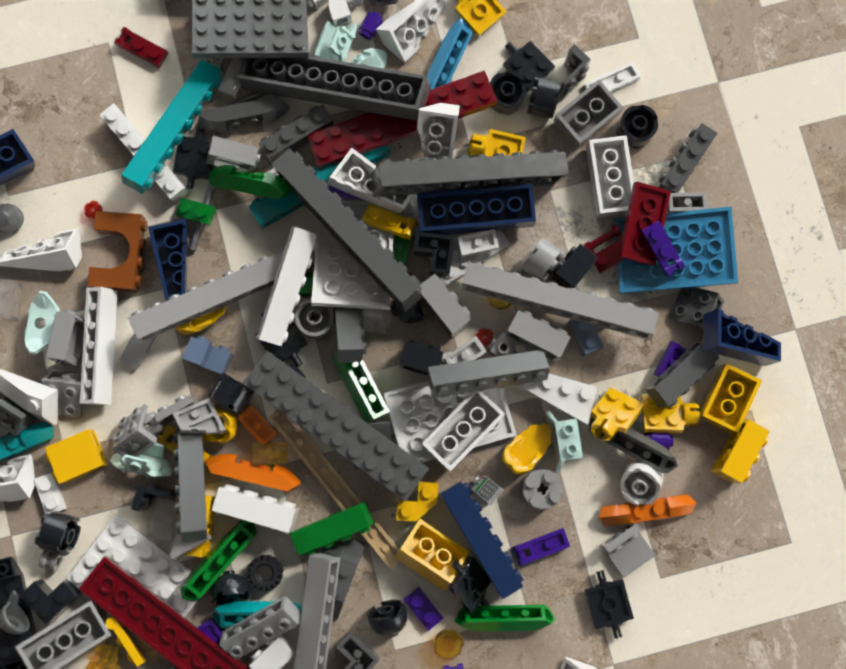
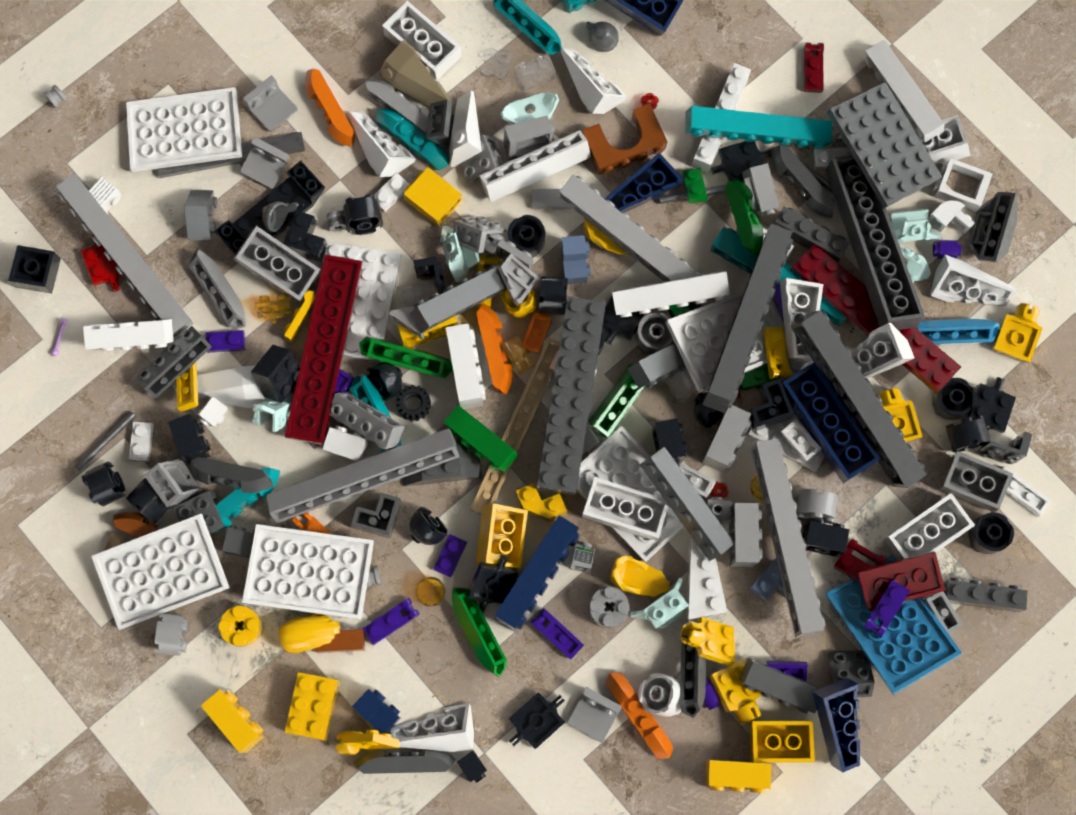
camera: 65 degrees right, 5 degrees down
(151, 388) = (526, 226): none -> black brick

